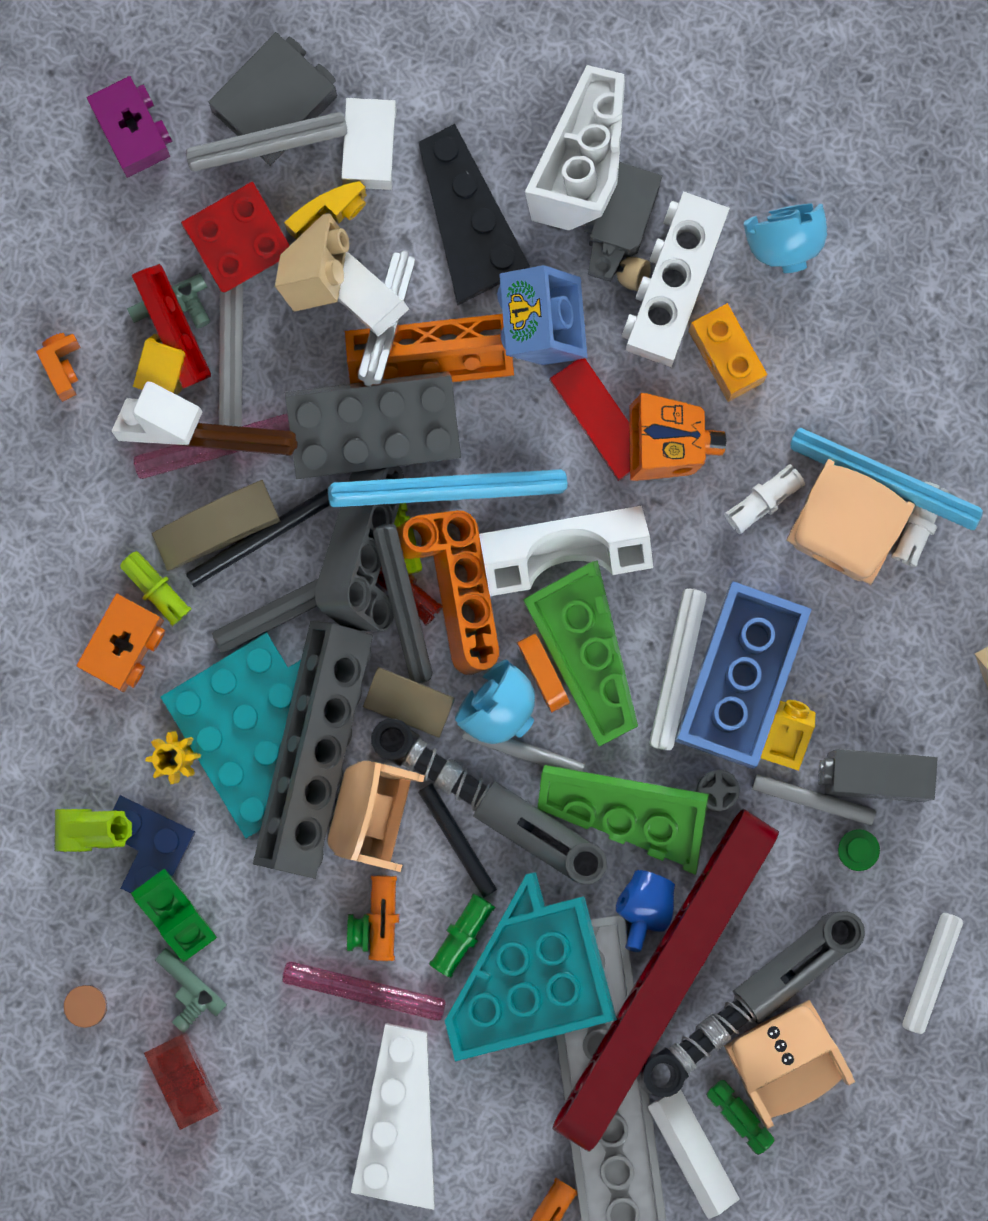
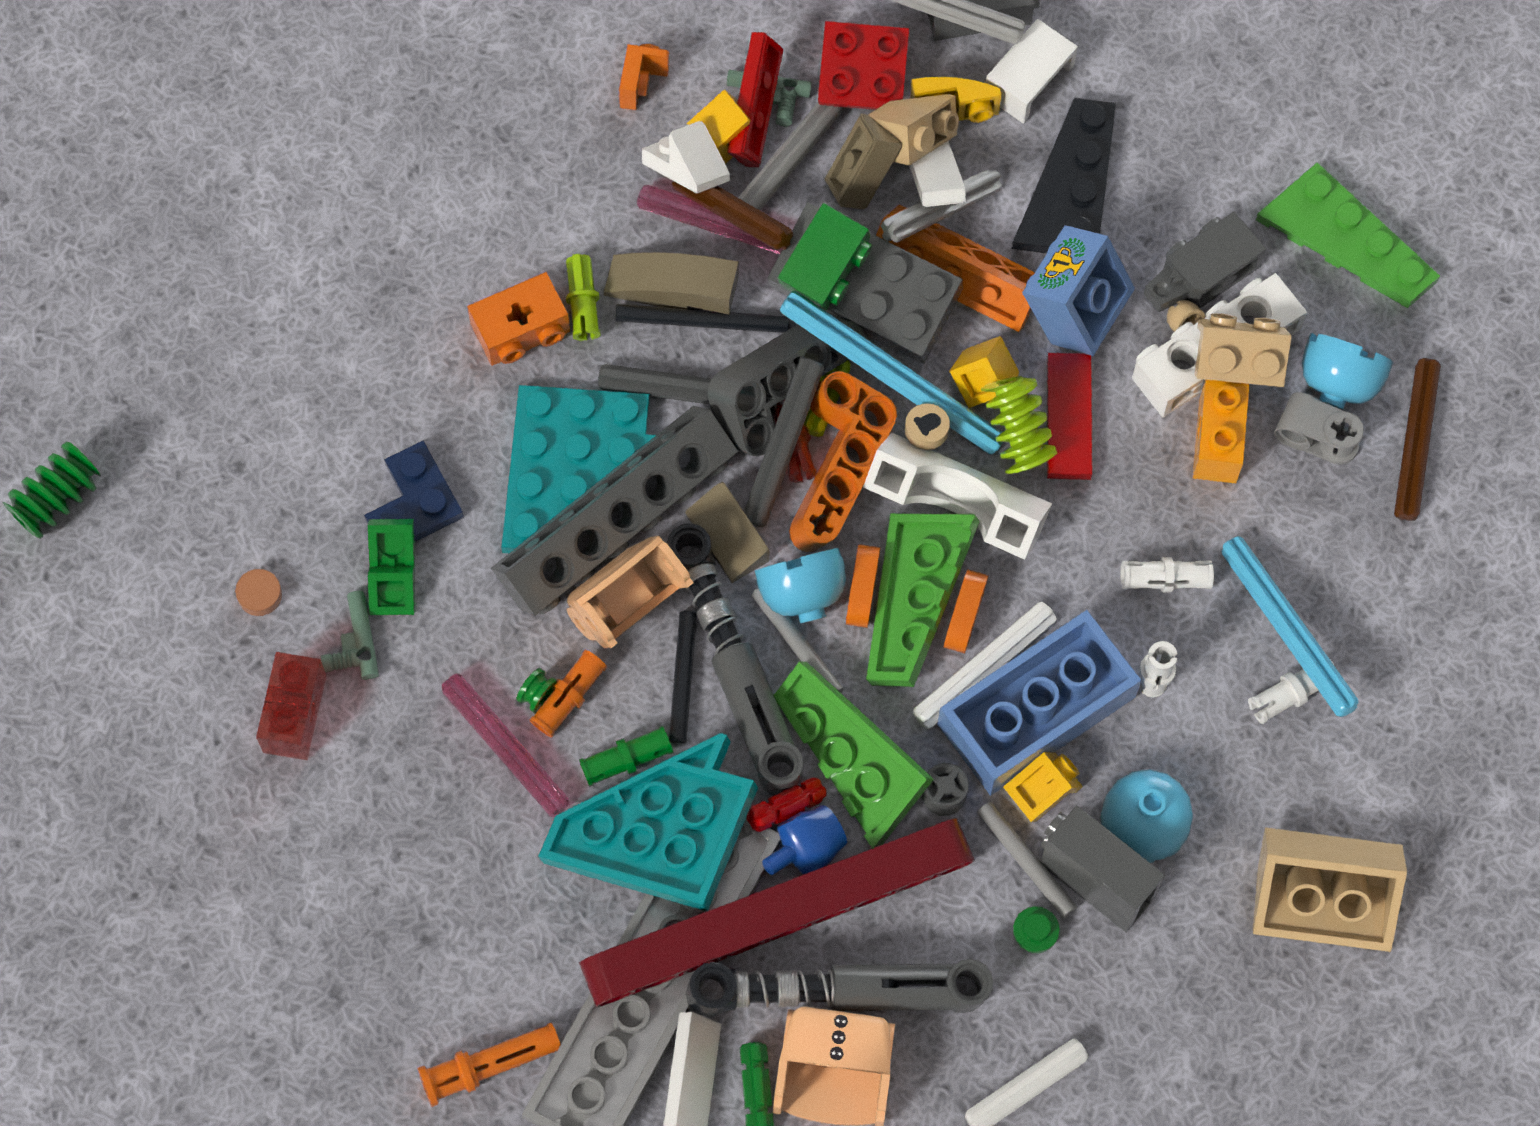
camera: 35 degrees right, 15 degrees down
(82, 829) = (373, 444): lime piece -> none
(183, 758) = (491, 438): yellow gear -> none
(295, 323) = (862, 163): none -> dark tan slope
(337, 439) = (826, 257): none -> green brick
(397, 1132) = (449, 871): white wedge -> none
(505, 512) = (927, 426): none -> tan tile
(512, 429) = (981, 366): none -> yellow panel
(574, 459) = (1020, 423): none -> lime piece
(582, 155) = (1204, 189): white wedge -> none
(610, 888) = (786, 804): none -> red axle
(635, 637) = (966, 611): none -> orange beam
(669, 438) = (1118, 466): orange torso -> none
(701, 110) = (1339, 227): none -> bright green wing
(705, 280) = (1242, 350): none -> tan bracket
(791, 296) = (1315, 426): none -> light grey piece
(815, 577) = (1163, 669): none -> white pin
(849, 522) = (1230, 640): light nougat piece -> none
(877, 249) = (1417, 439): none -> reddish brown axle
(879, 703) = (1148, 813): none -> medium azure cylinder

